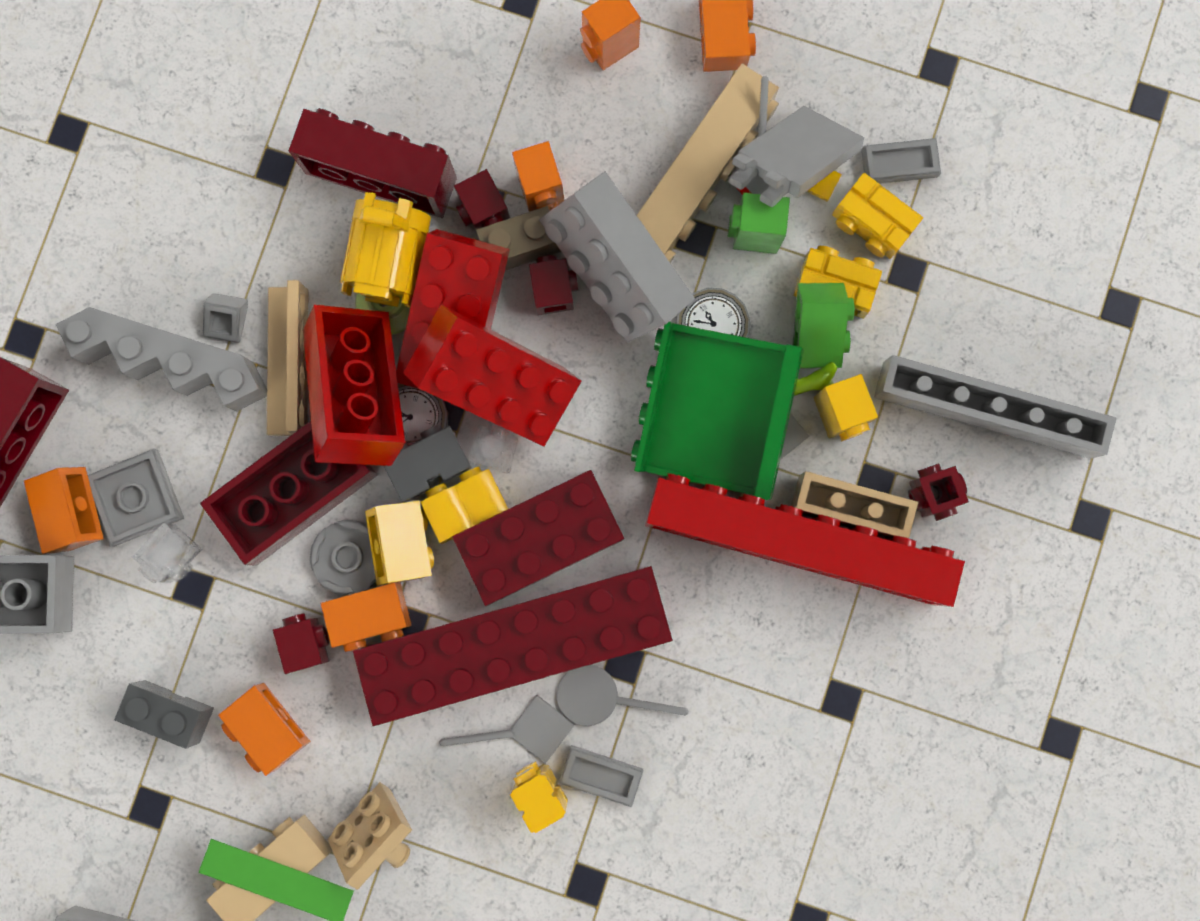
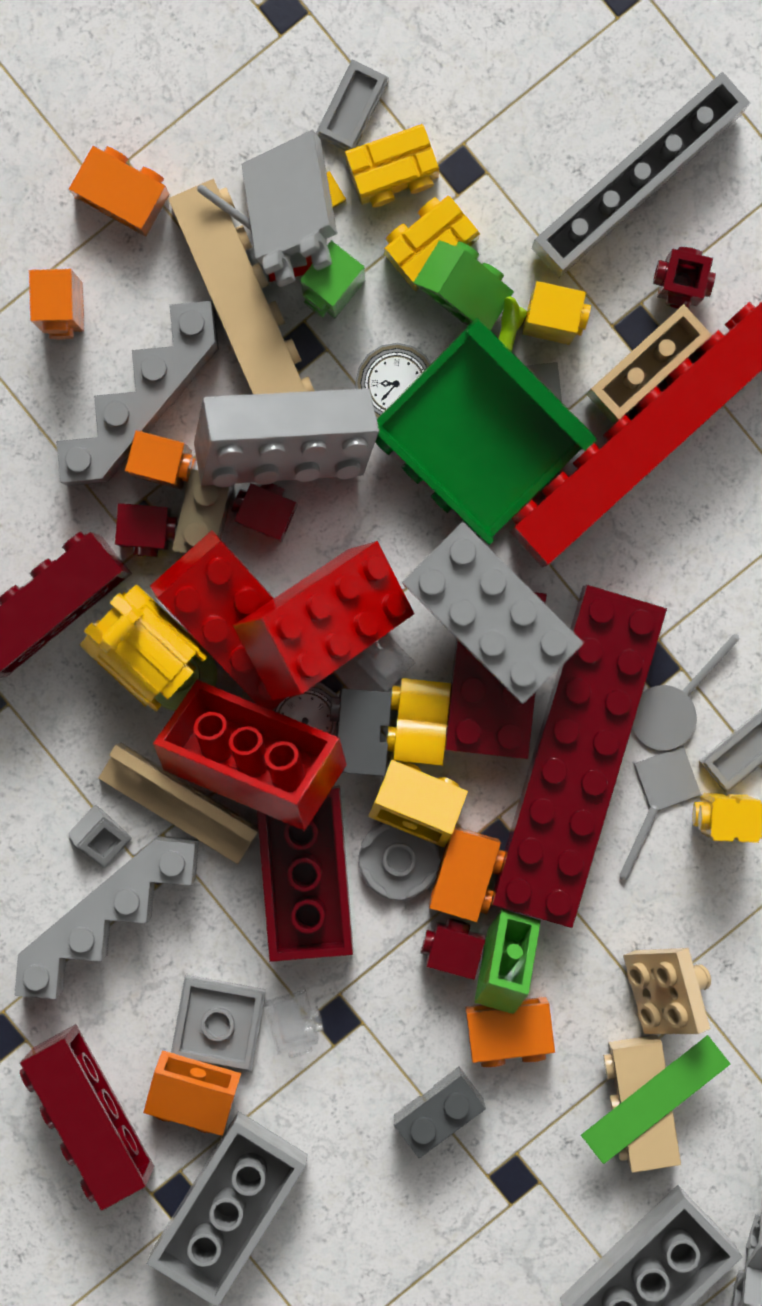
camera: 60 degrees left, 5 degrees up
(314, 691) = (507, 961): none -> bright green brick
(579, 501) = (492, 612): none -> light grey brick
(599, 144) = (159, 381): none -> light grey brick

